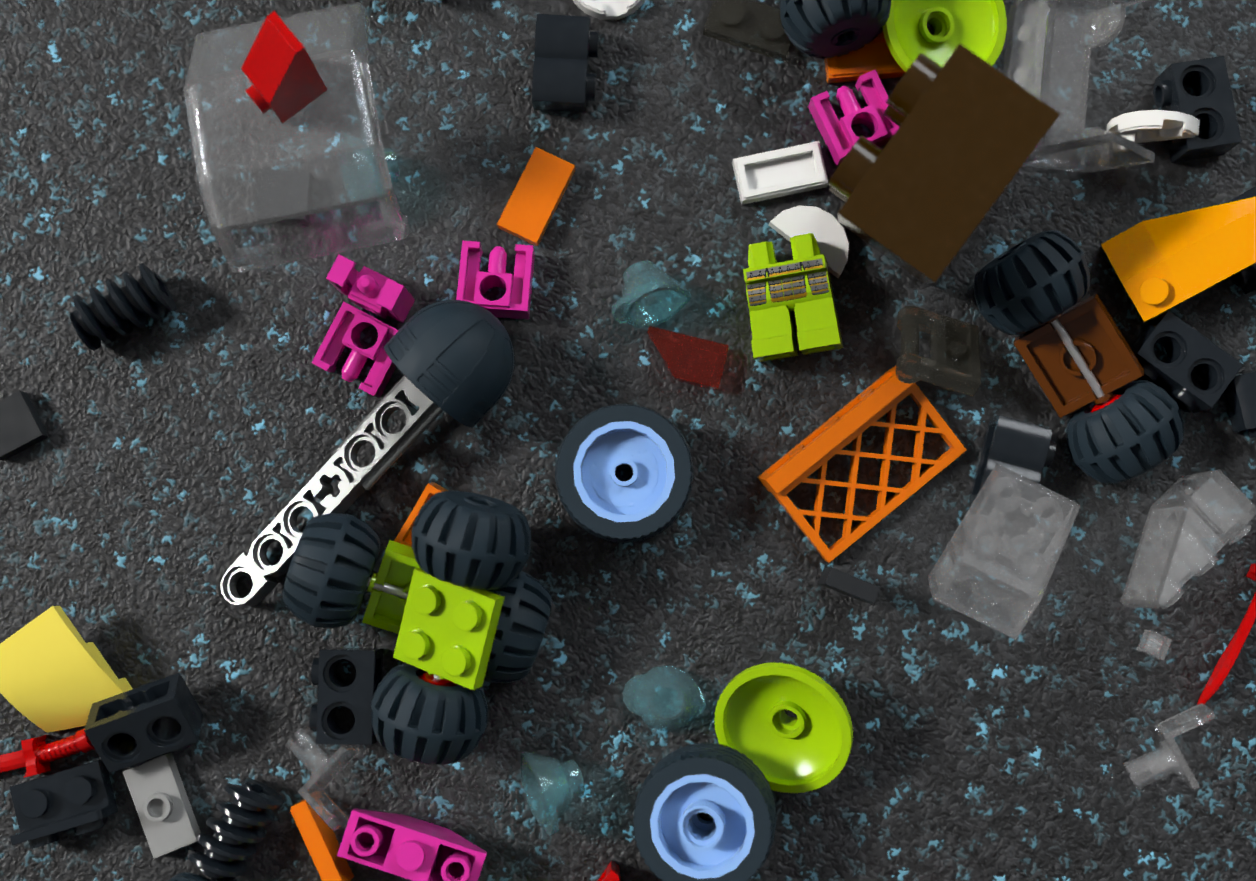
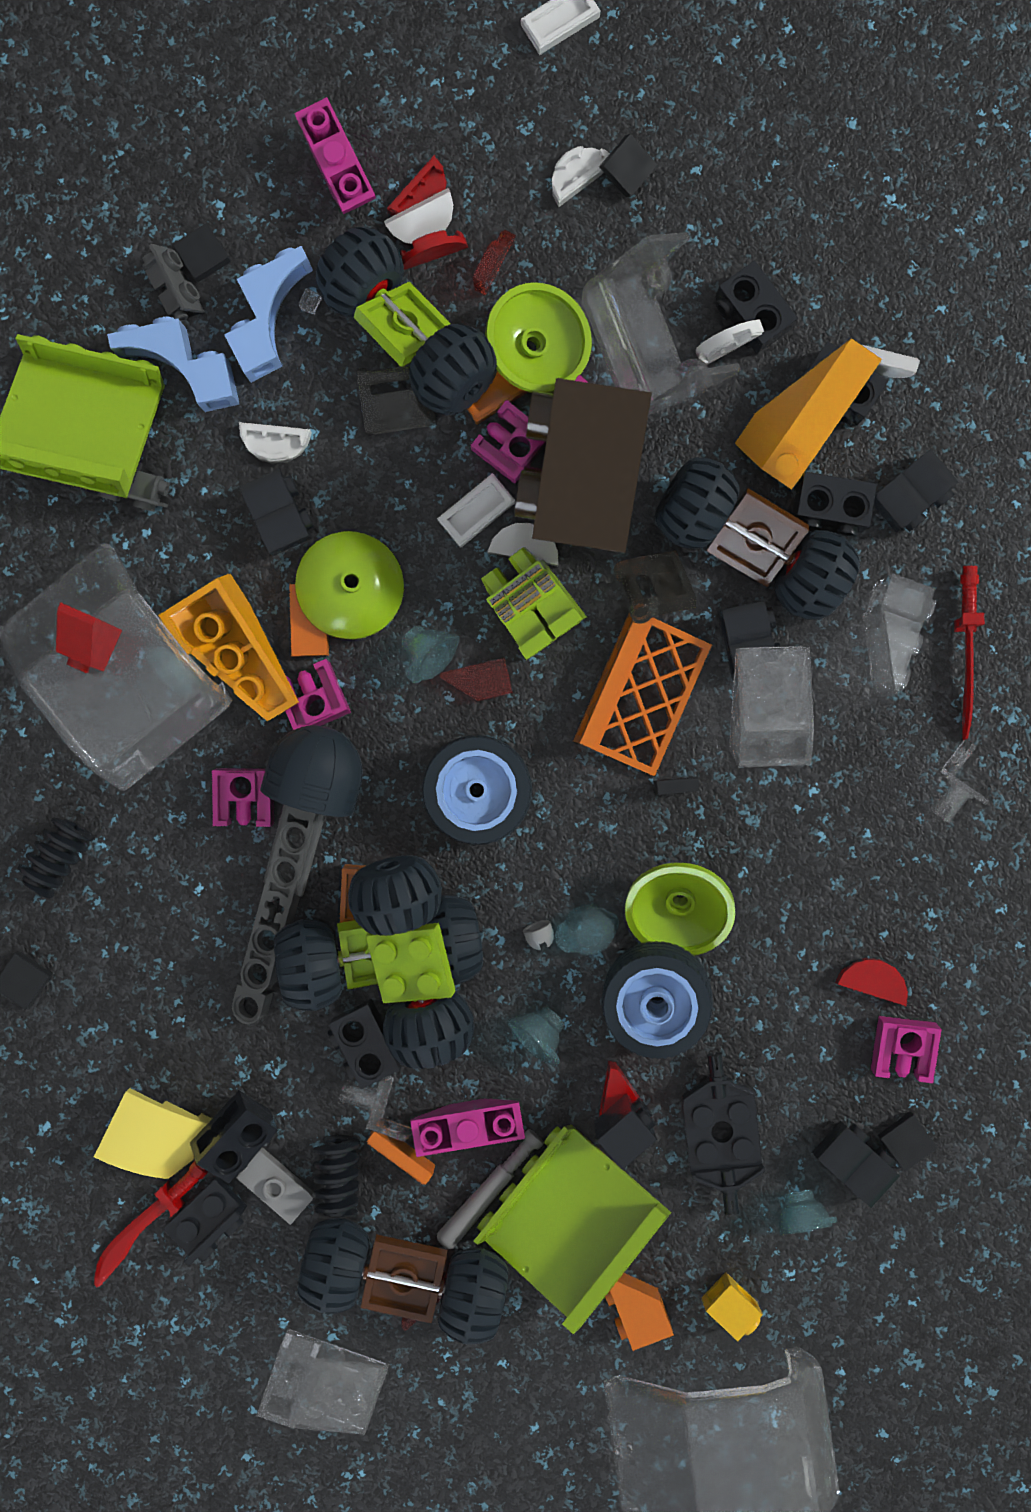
camera: 30 degrees left, 5 degrees up
(370, 290) = (227, 751): dark pink brick -> none
(437, 168) = (228, 639): none -> light orange wedge
(584, 205) = (346, 610): none -> lime dish
(608, 672) = (539, 933): none -> light grey hinge
(1154, 644) = (912, 715): clear piece -> none

